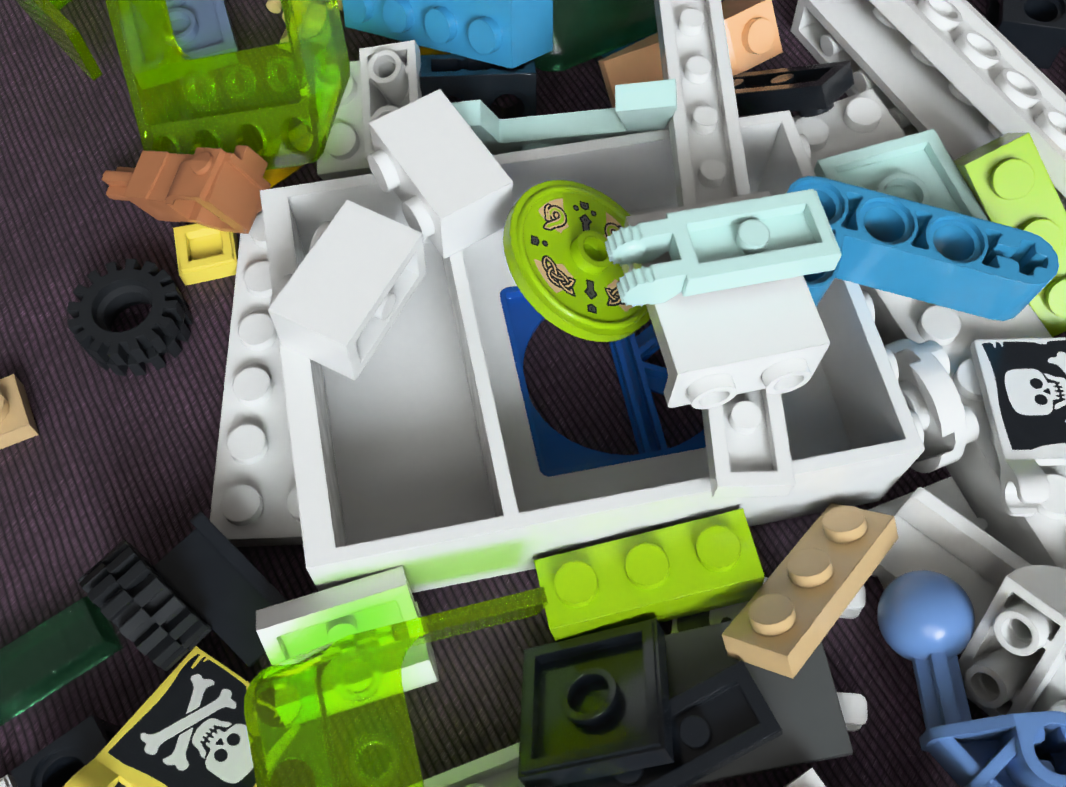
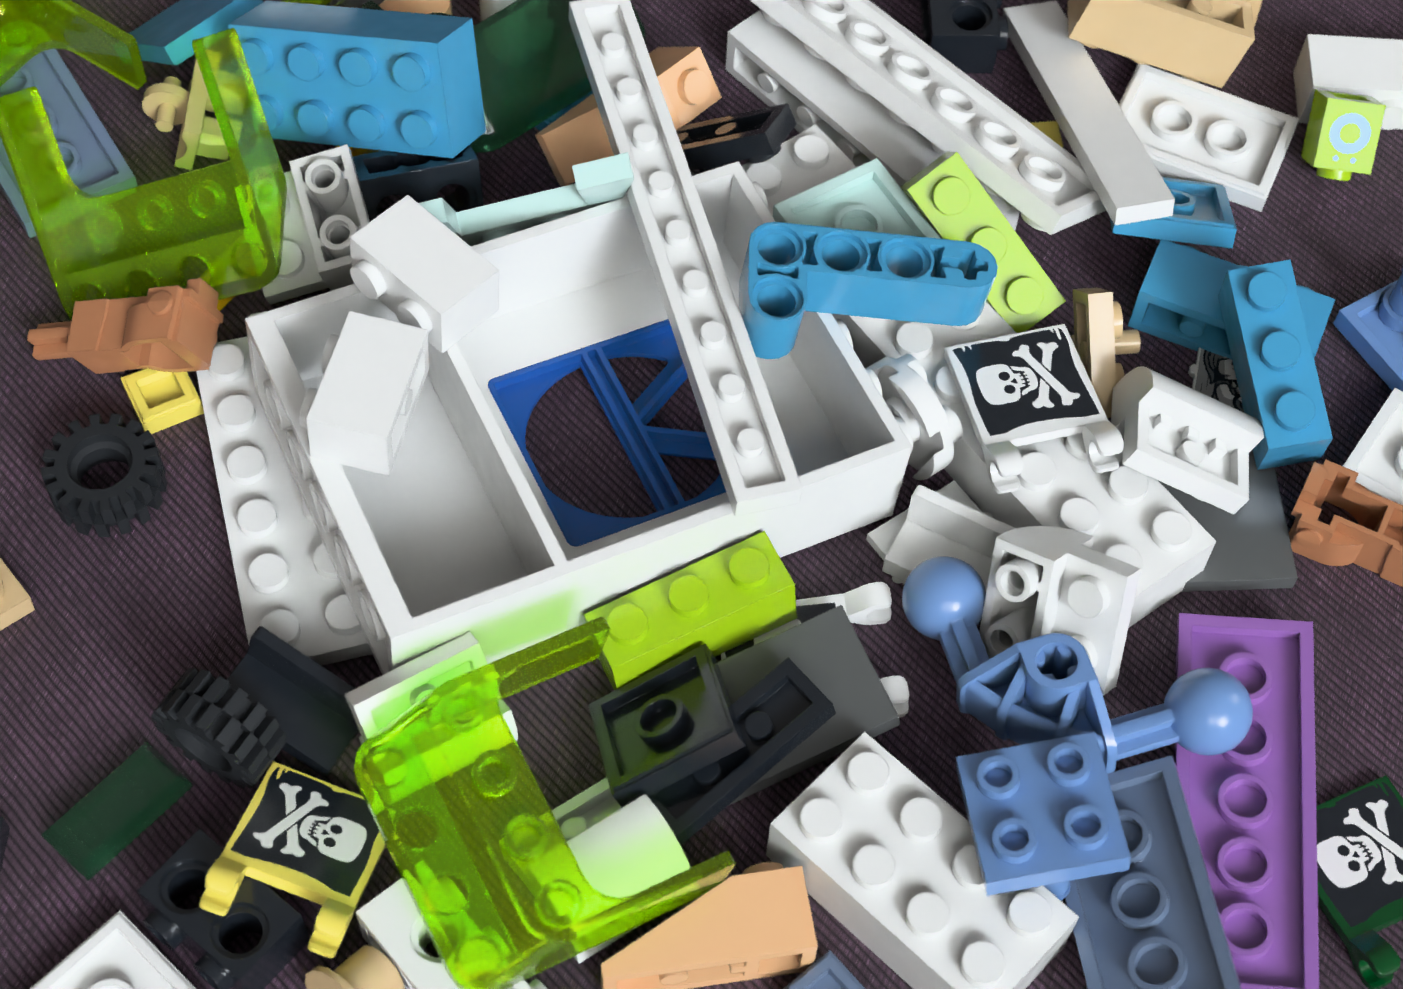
camera: 20 degrees left, 5 degrees down
(562, 262) = (576, 331): lime shield -> none
(724, 247) = (703, 296): light aqua hinge -> none
(735, 336) = (710, 341): white panel -> none
(810, 589) = (838, 588): tan plate -> none

